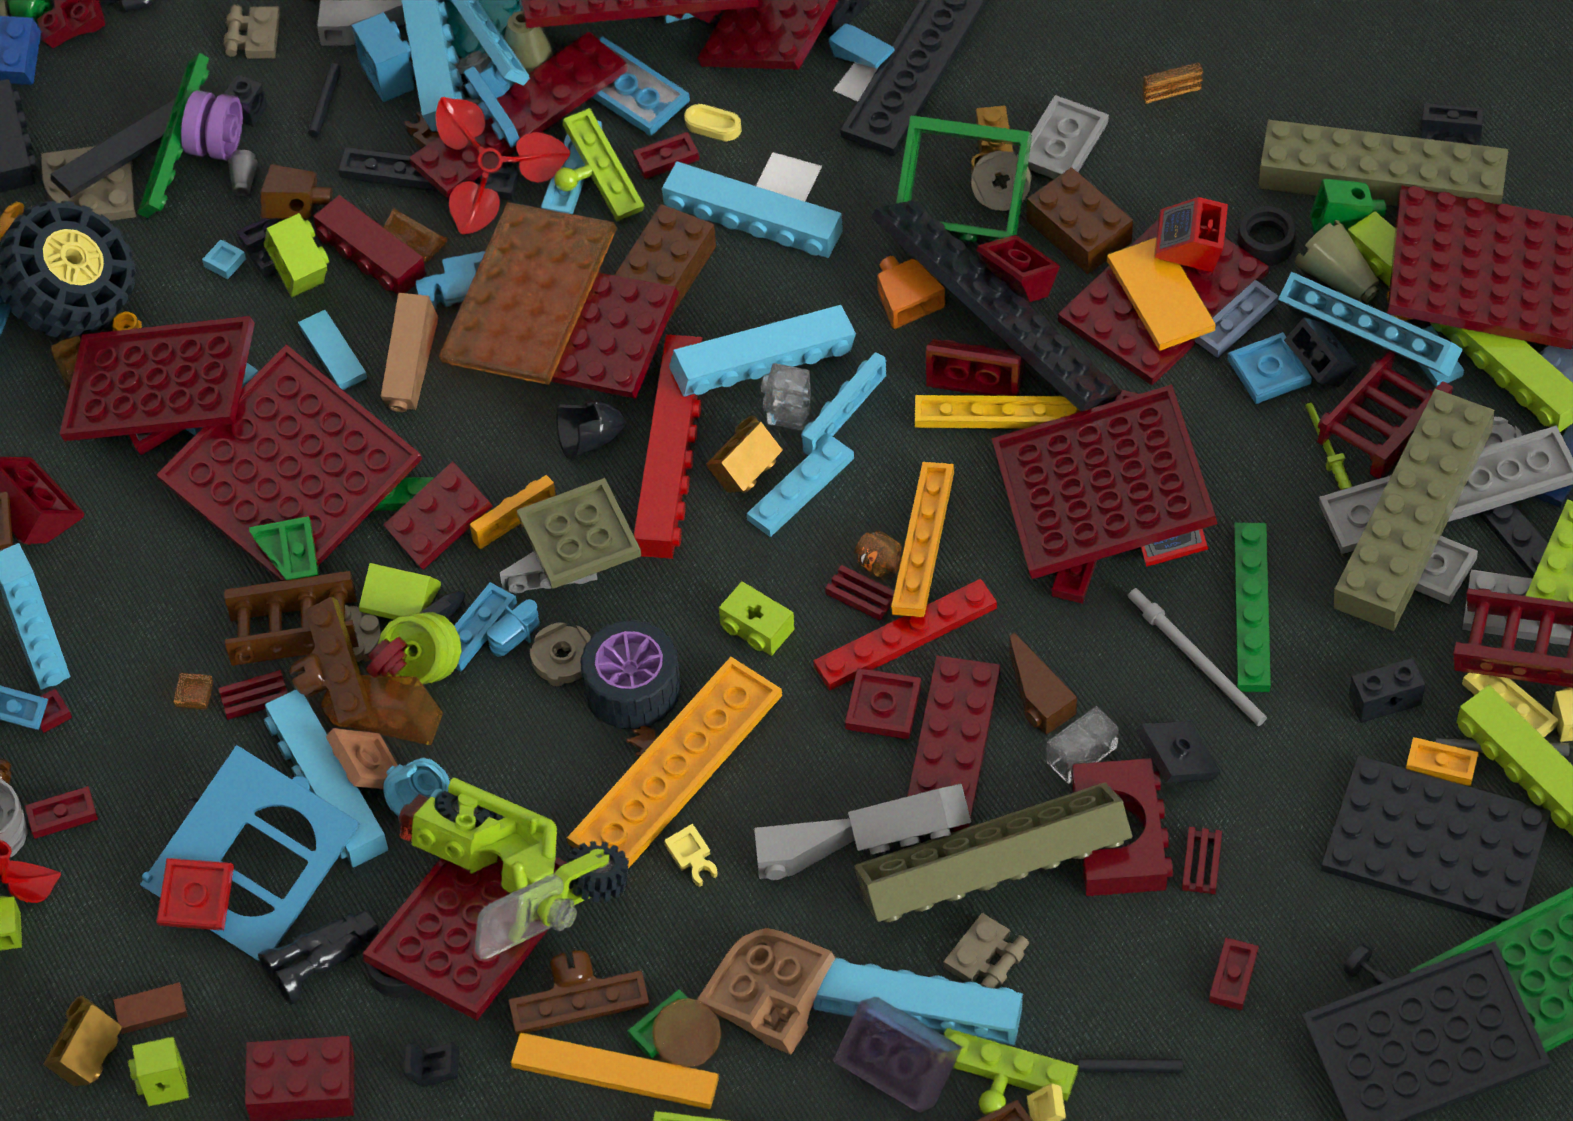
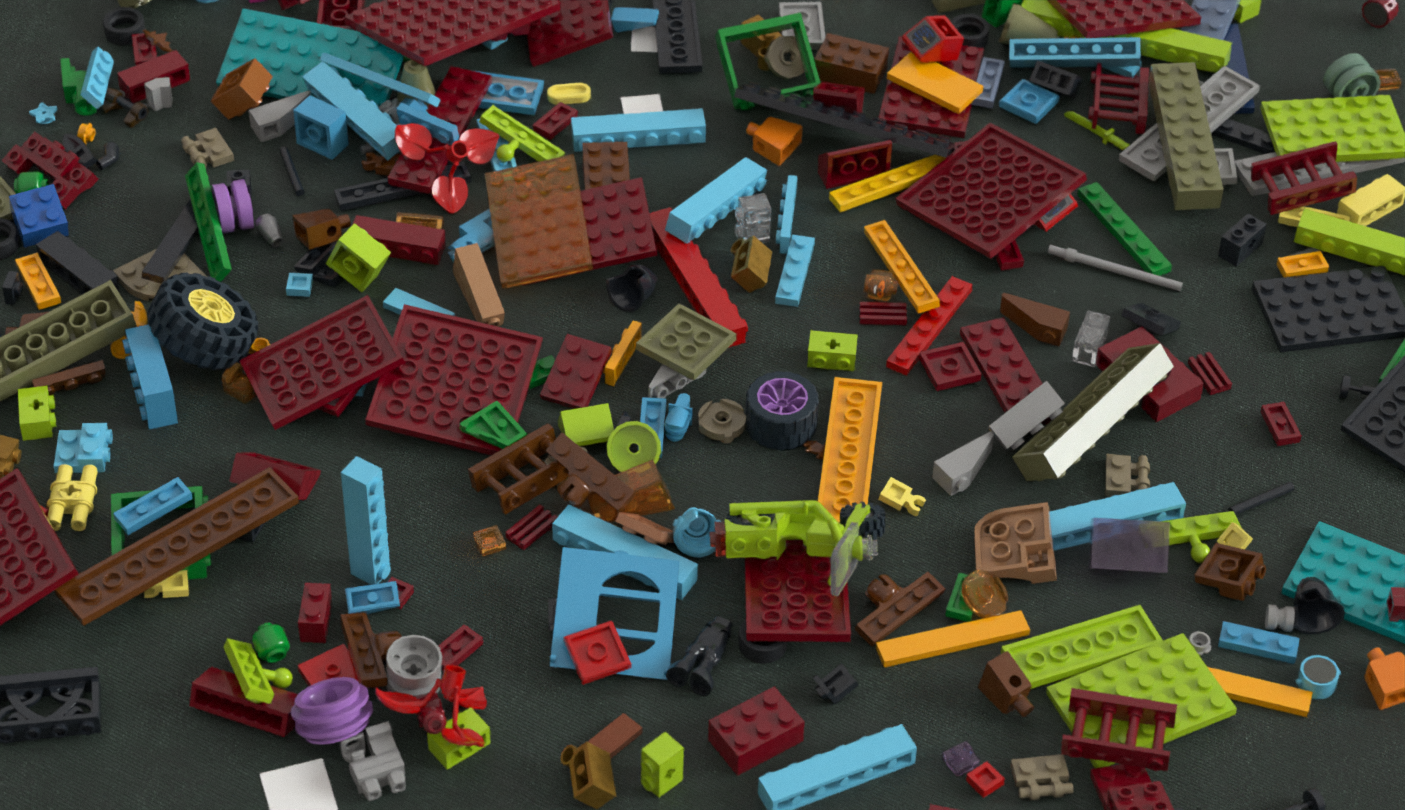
camera: 35 degrees left, 10 degrees down
(387, 658) = (626, 454): dark red plate -> none

